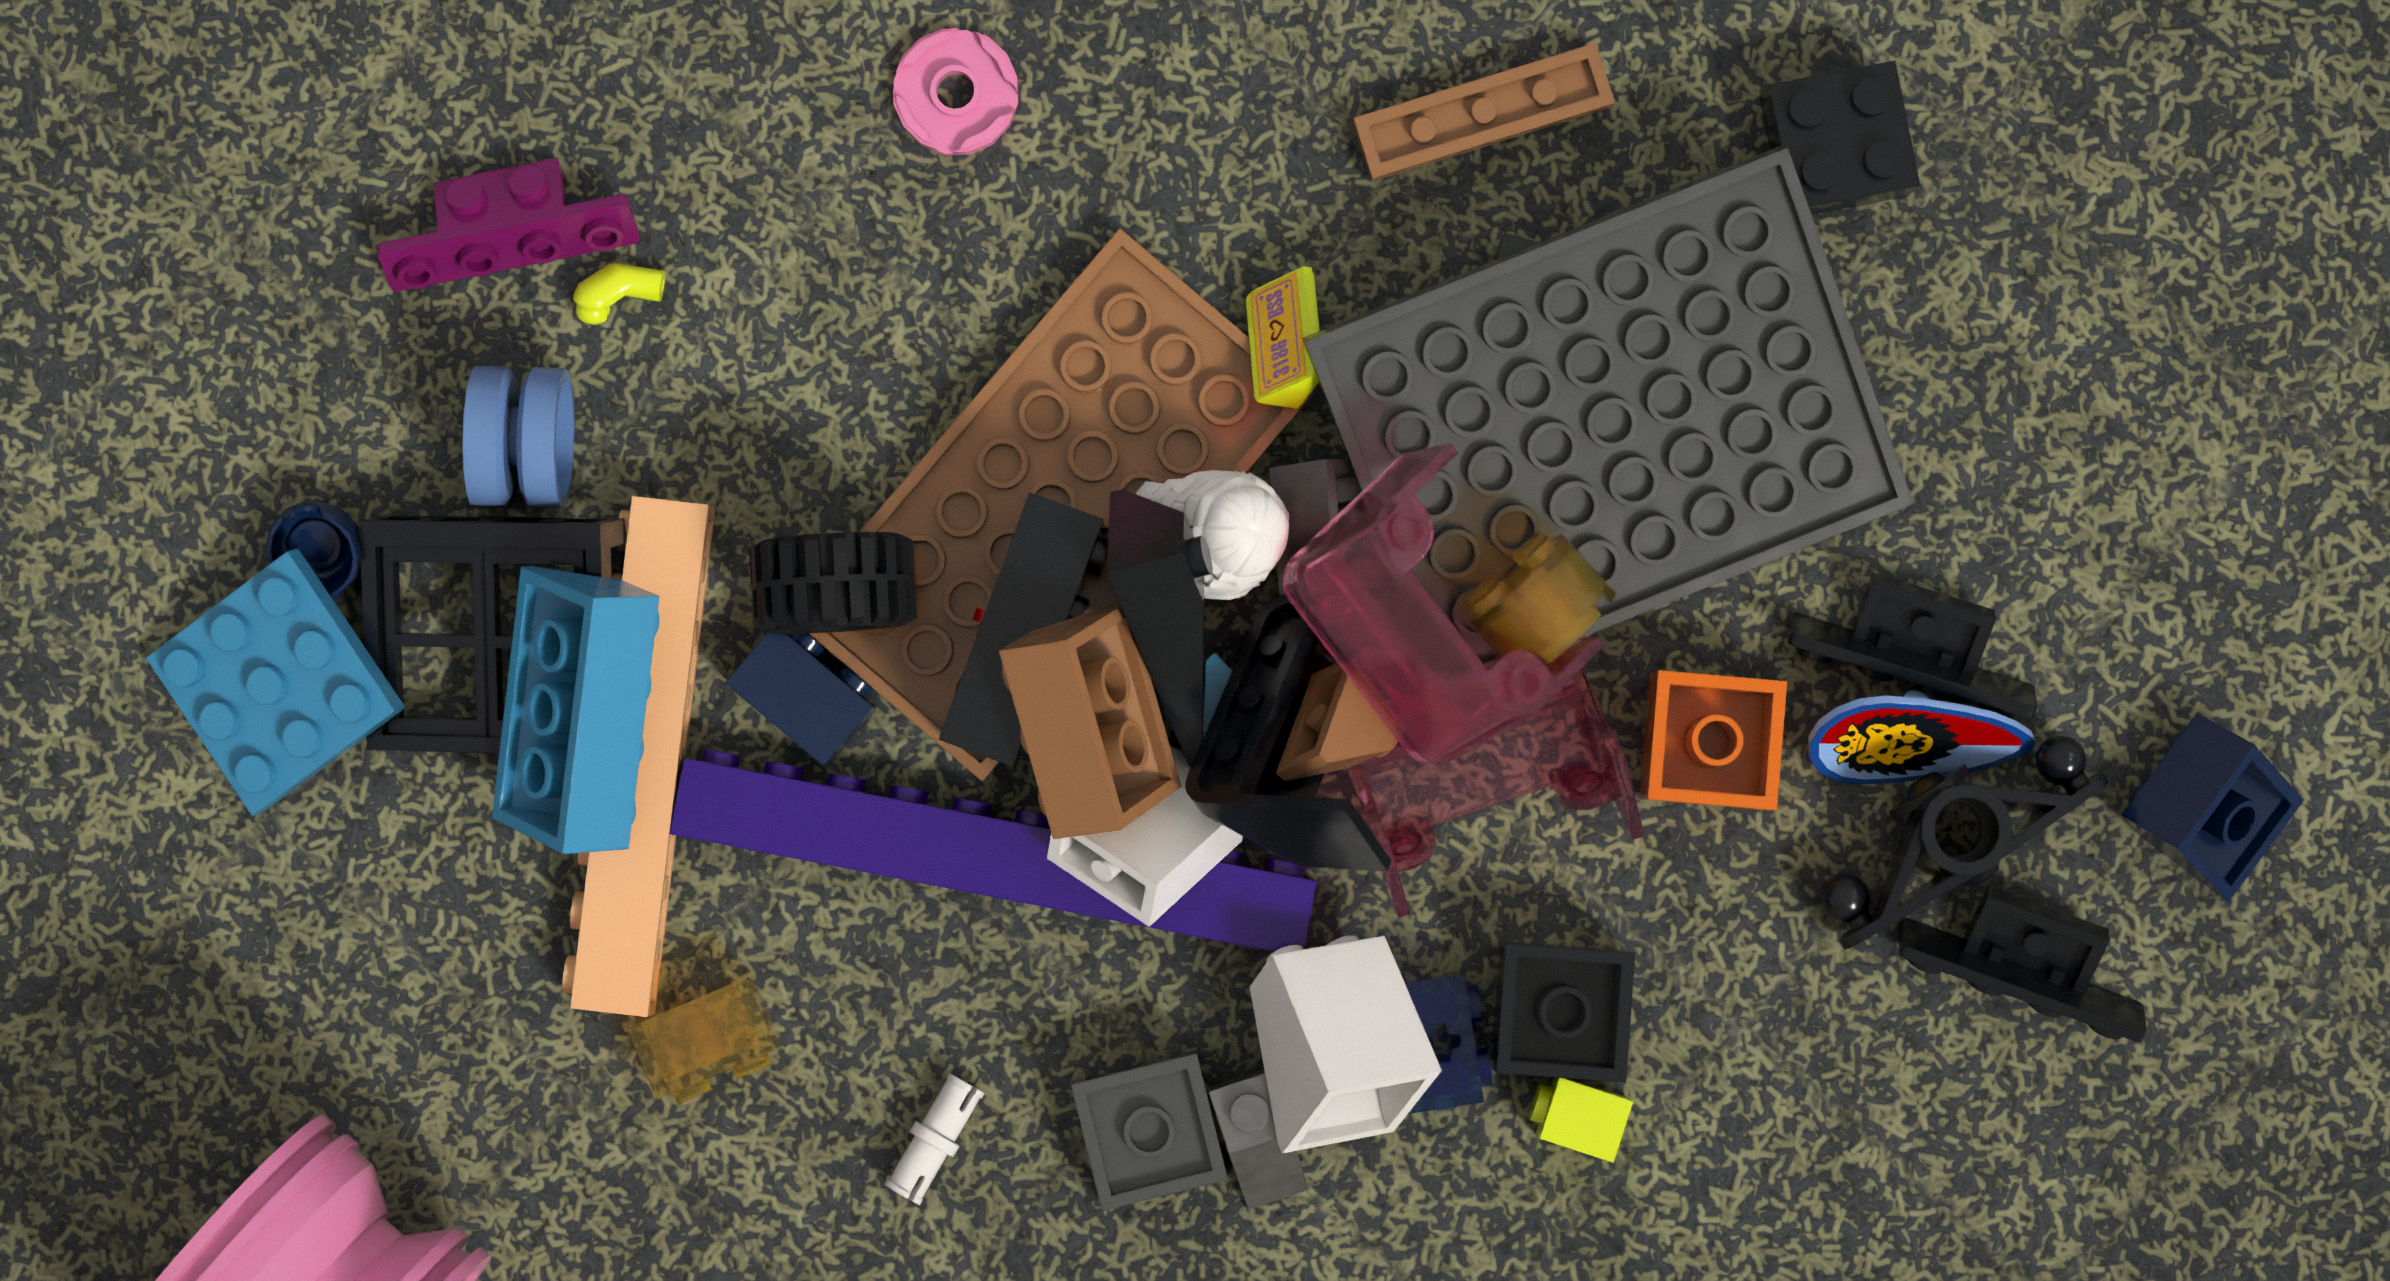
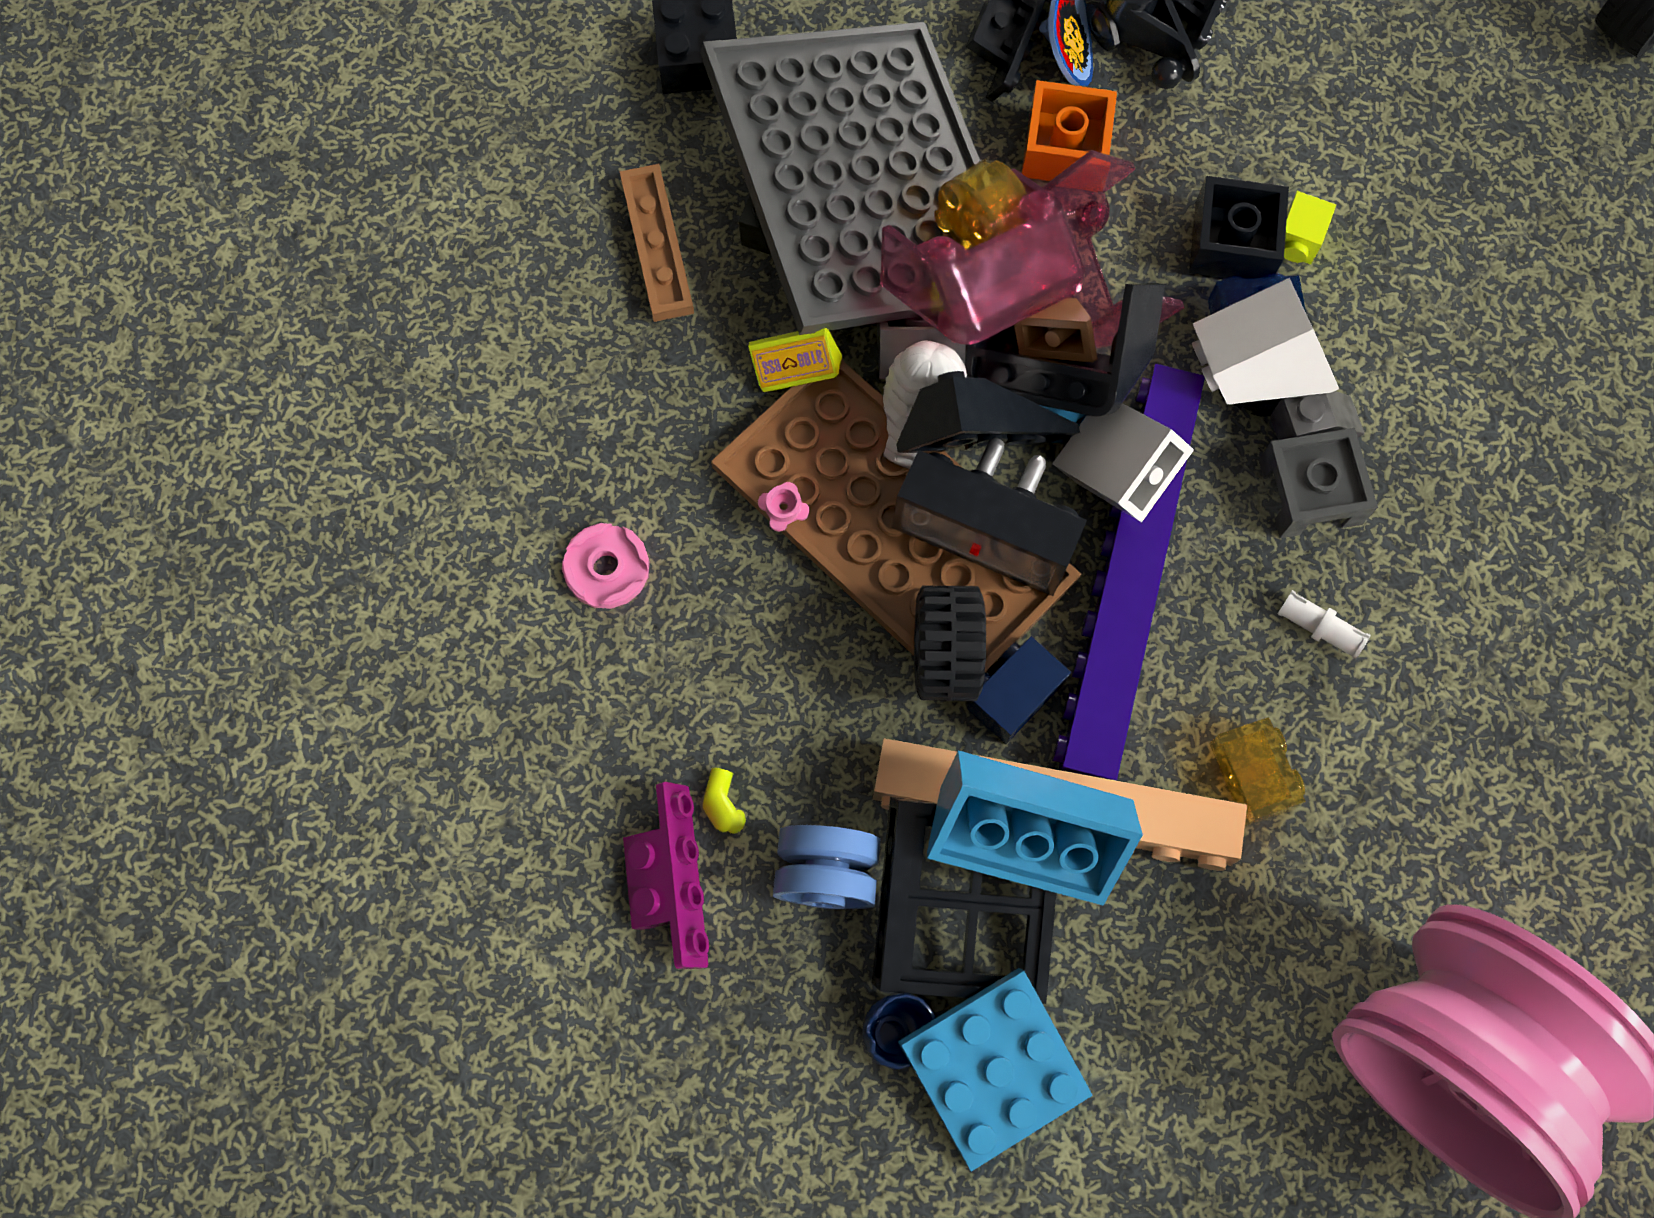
camera: 85 degrees left, 15 degrees down
(1030, 336) = (783, 494): none -> bright pink plate
(1089, 723) = (1061, 466): medium nougat slope -> none

